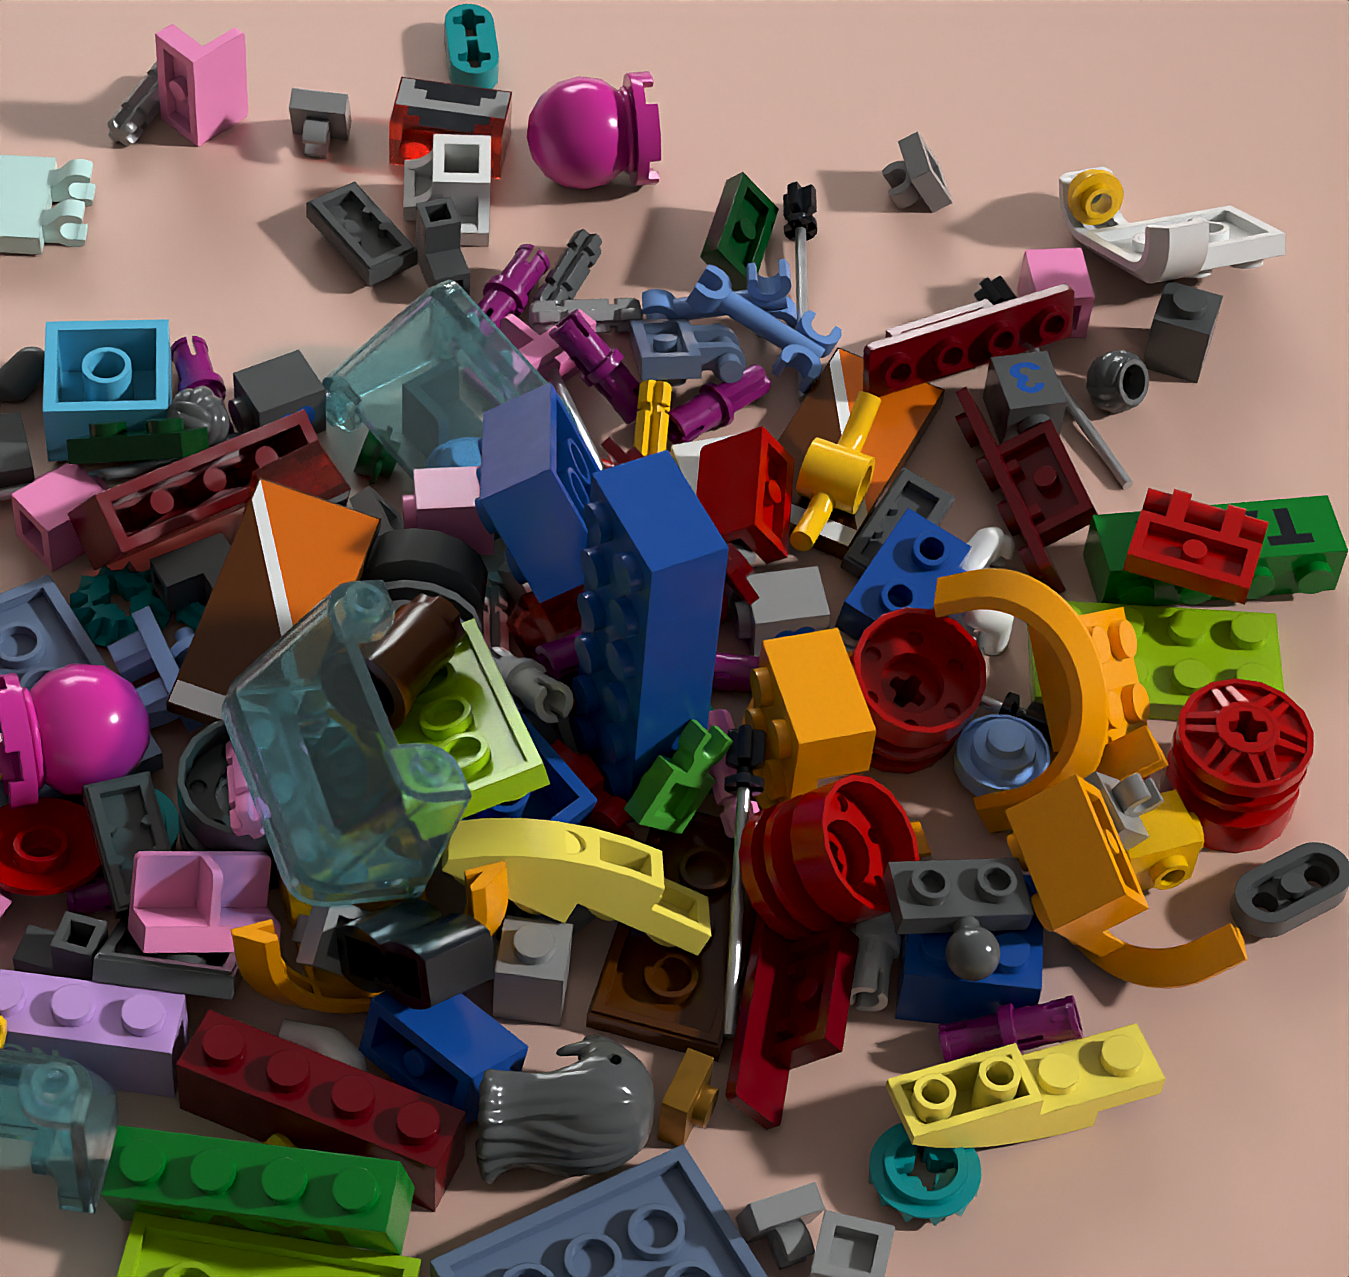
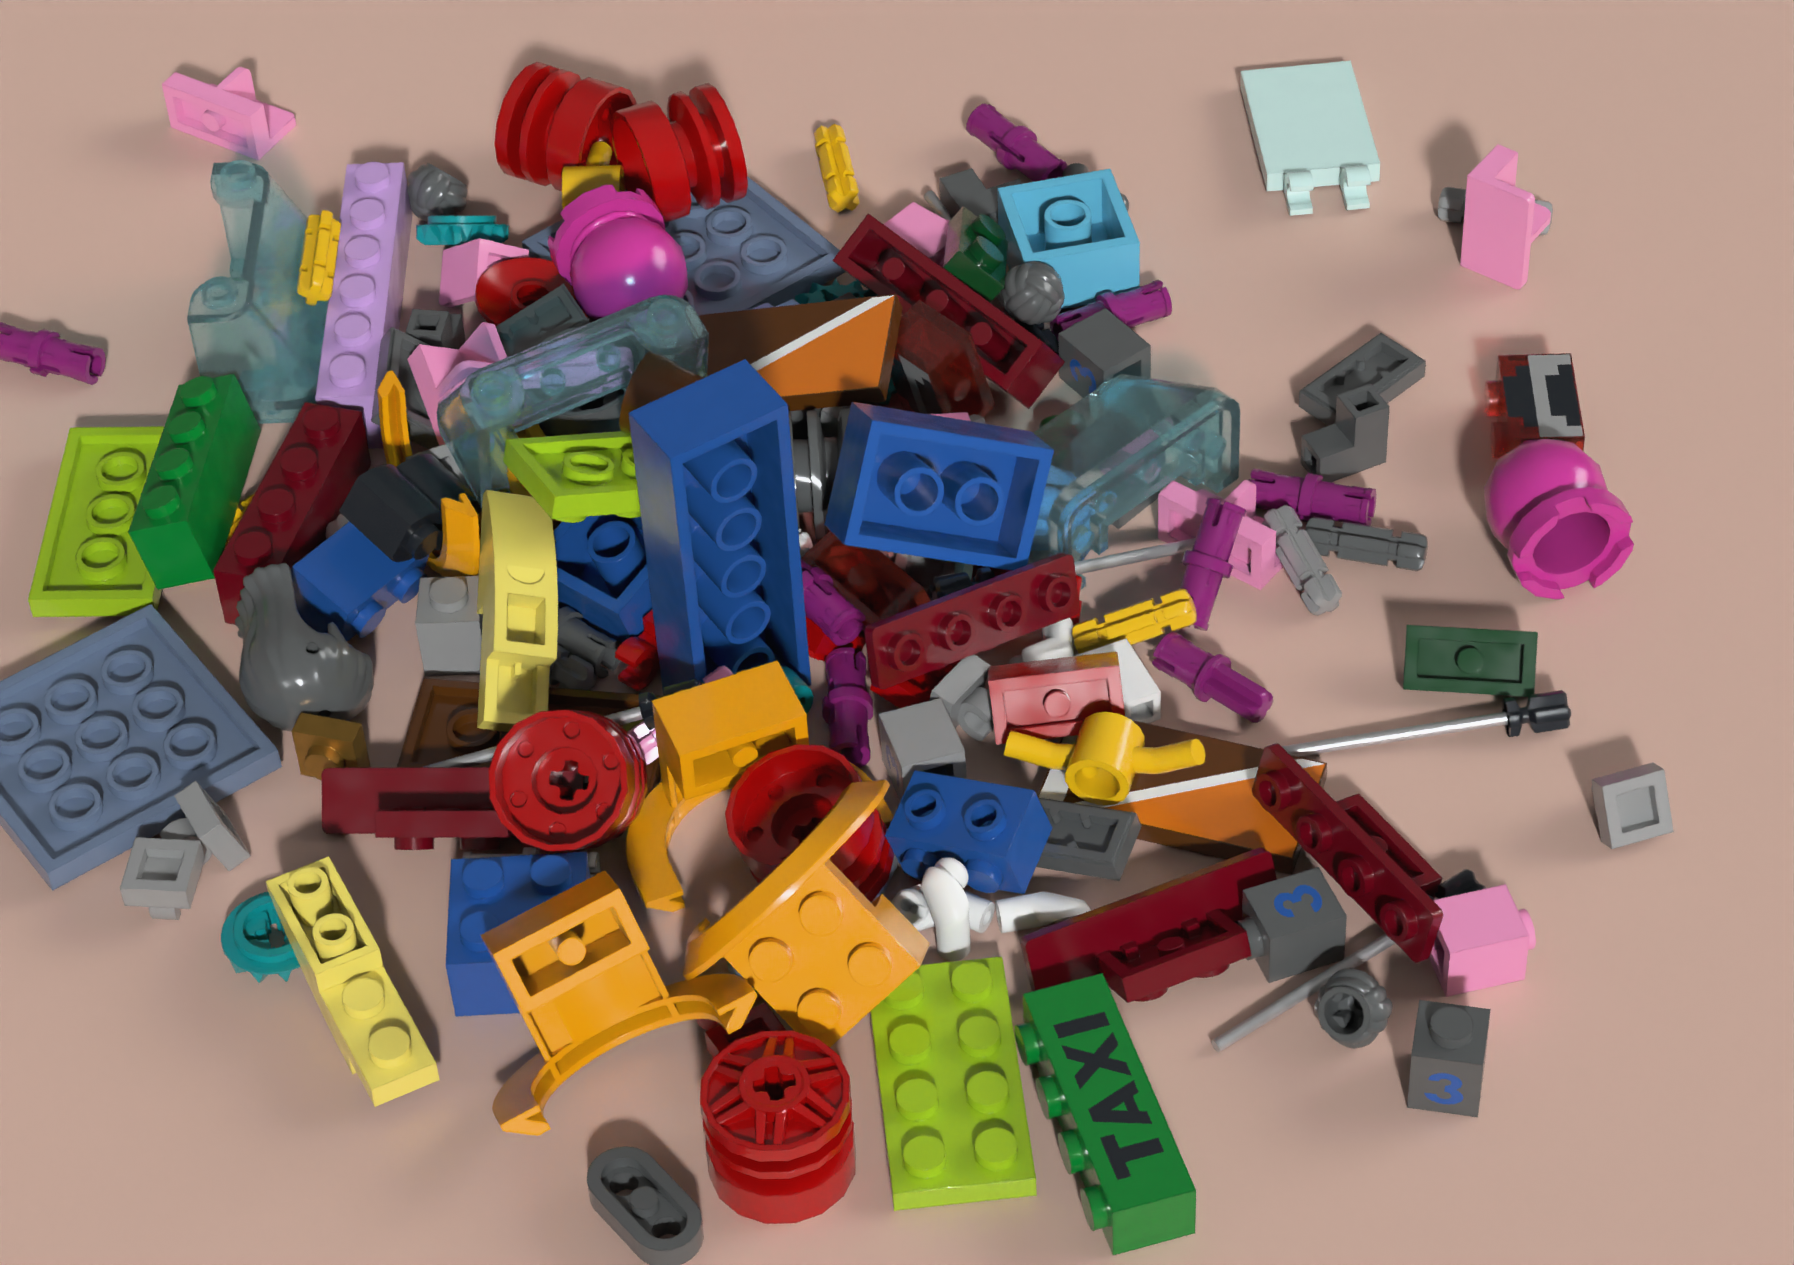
camera: 90 degrees right, 5 degrees down
(319, 118) = (1507, 322): light grey tile -> none
(455, 169) = (1439, 433): white brick -> none
(479, 48) = (1685, 424): teal beam -> none
(678, 785) = (647, 665): bright green plate -> none
(680, 351) = (1259, 616): sand blue plate -> none
(764, 292) = (1355, 662): medium blue bar -> none
(799, 346) = (1312, 732): medium blue bar -> none
(962, 899) = (515, 863): dark grey plate -> none
(1025, 1026) = (421, 970): magenta pin -> none
(1086, 187) = (1628, 944): yellow plate -> none
(1126, 802) = (654, 986): light grey tile -> none
(1172, 848) = (669, 1071): yellow brick -> none
(1176, 244) = (1585, 1026): white piece -> none
(1196, 545) = (1039, 1045): red plate -> none

